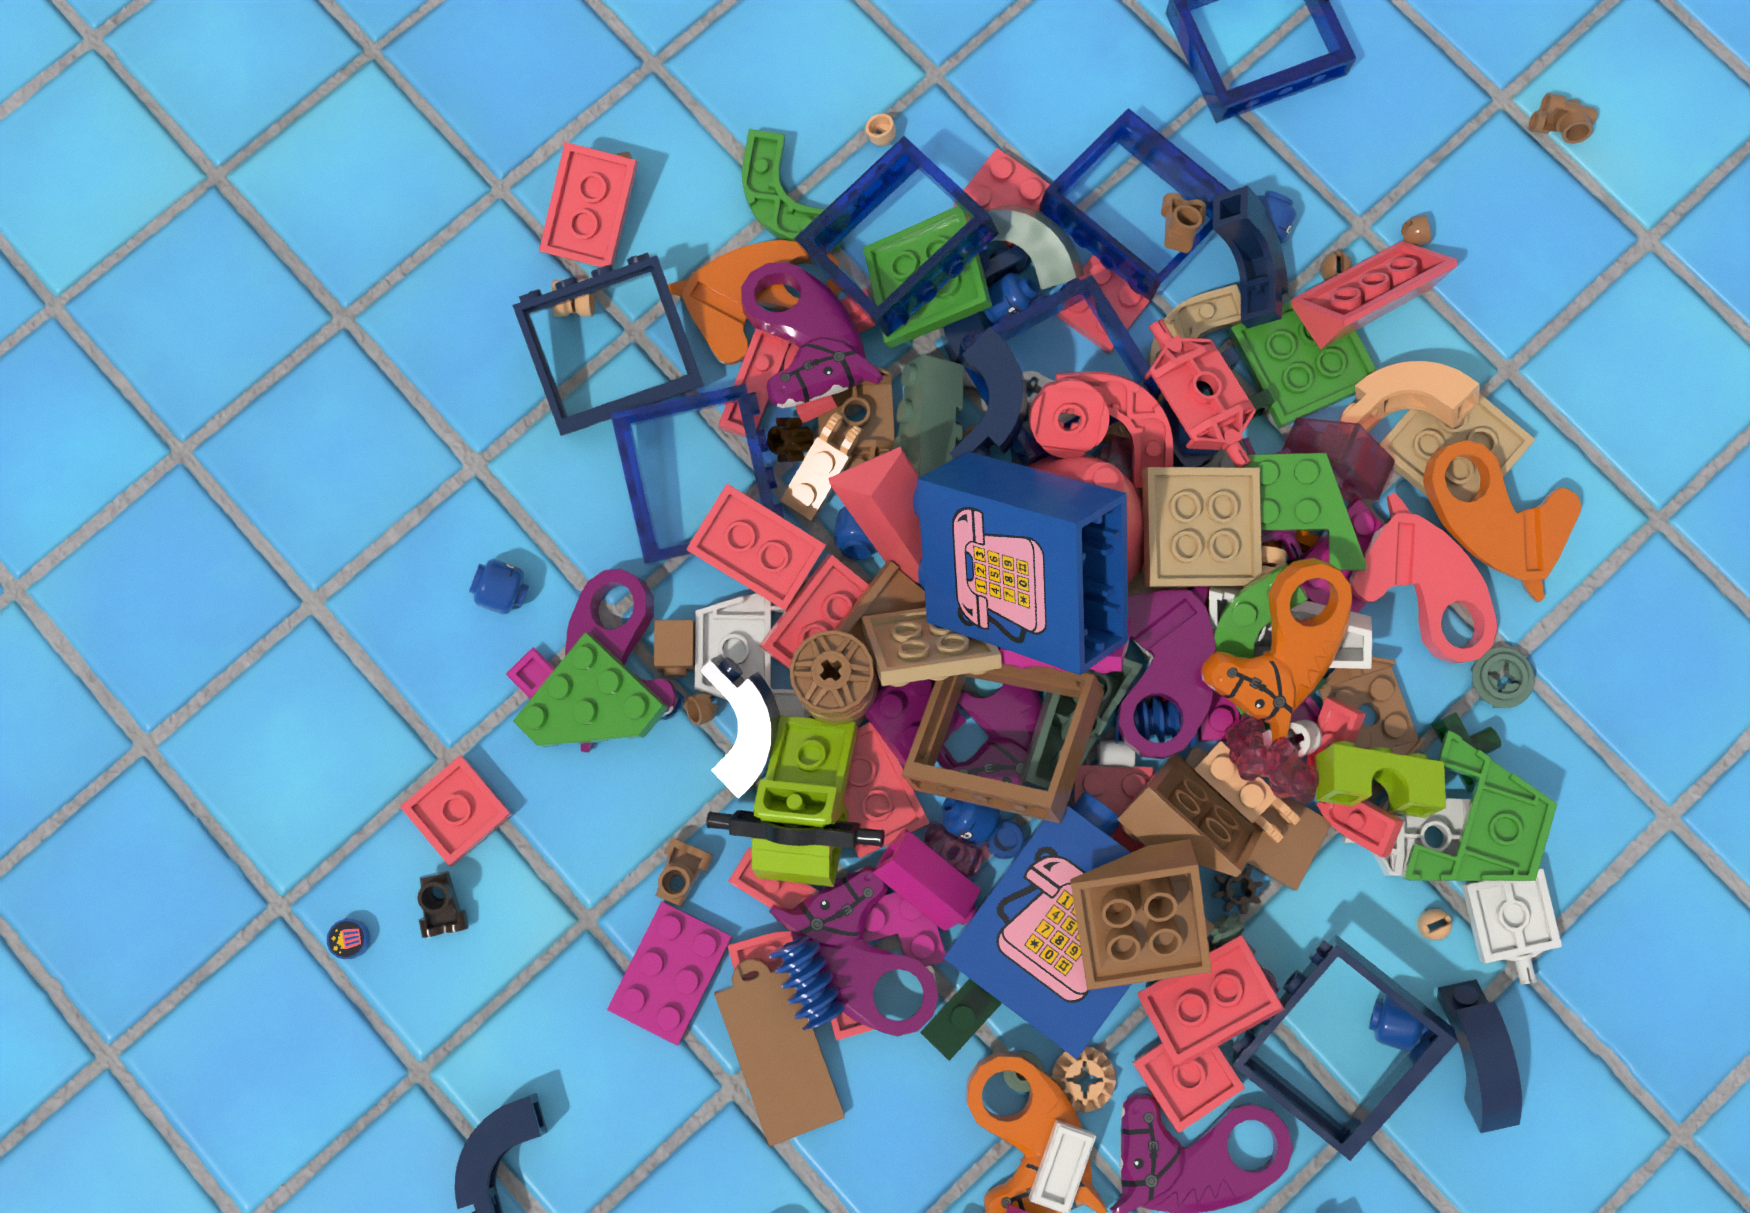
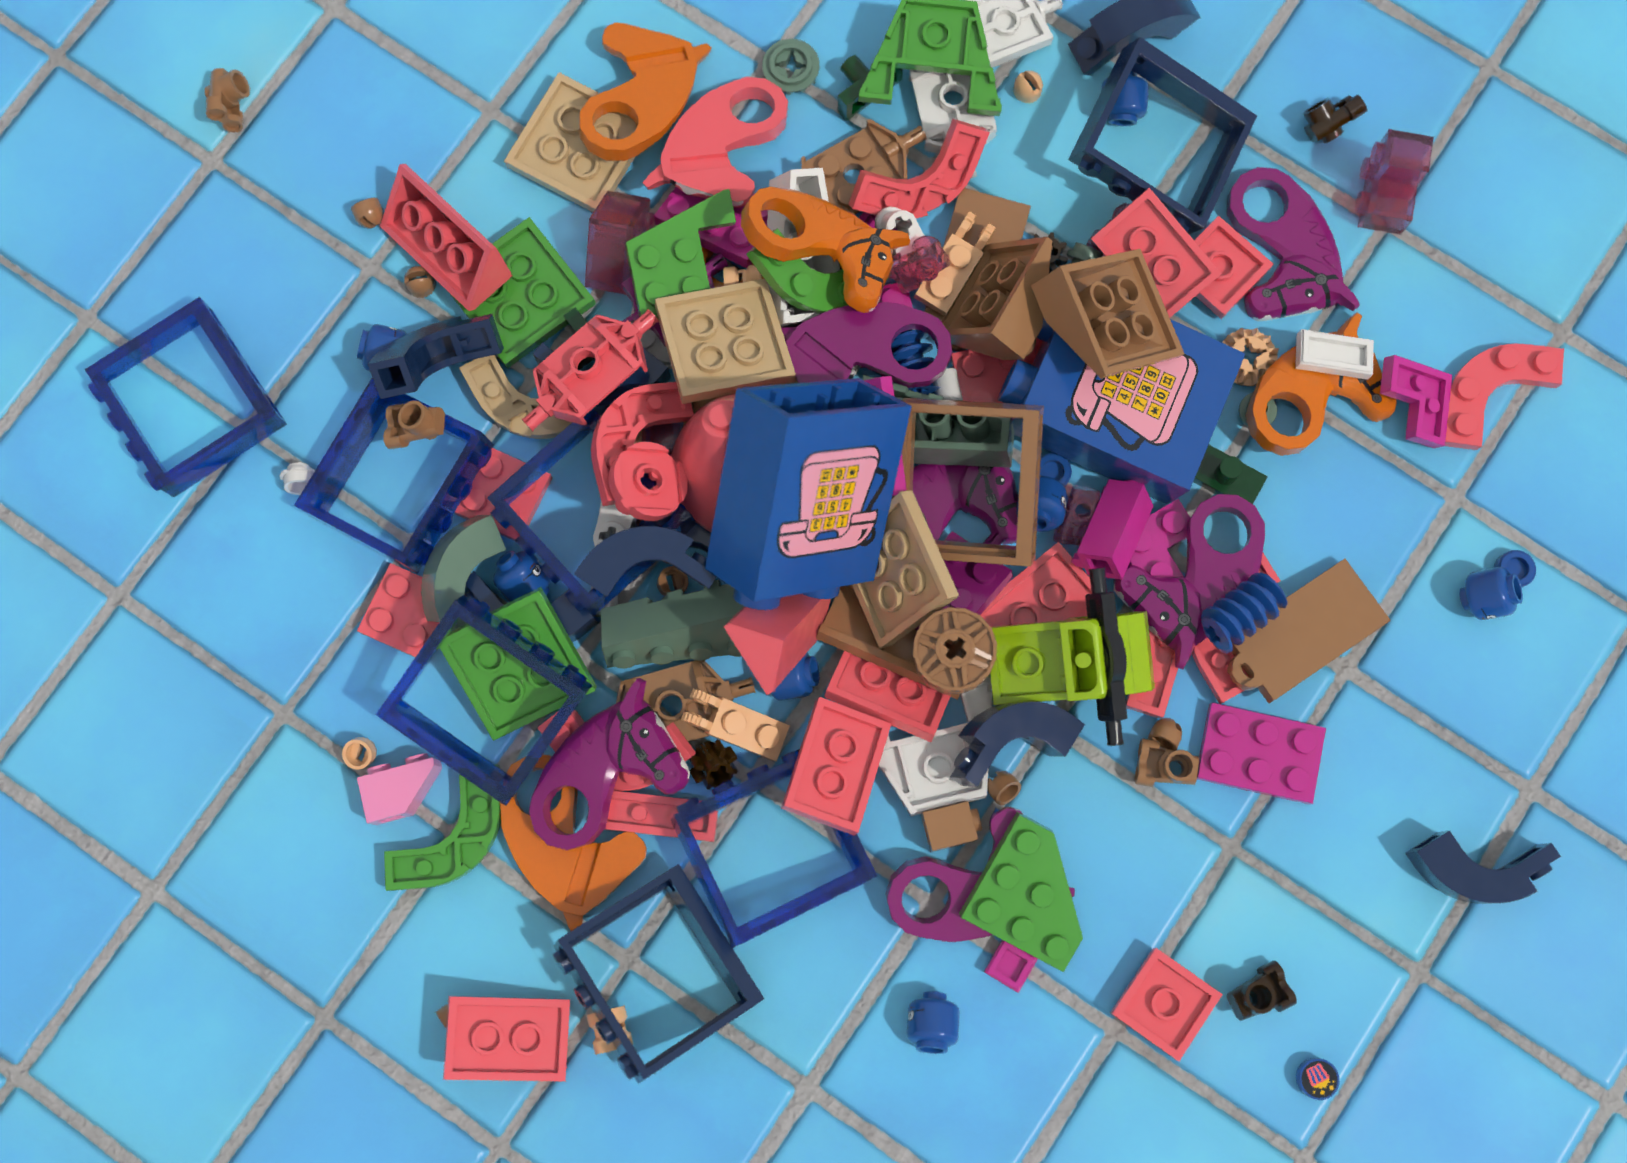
camera: 100 degrees left, 0 degrees up
(712, 882) = (1167, 733): none -> medium nougat hinge
(836, 151) = (397, 791): none -> bright pink slope
(1159, 118) = (296, 477): none -> white plate
(1289, 774) = (934, 223): clear pink plate -> none
(1411, 780) = (923, 171): lime arch -> none
(1413, 385) = (531, 183): light nougat arch -> none

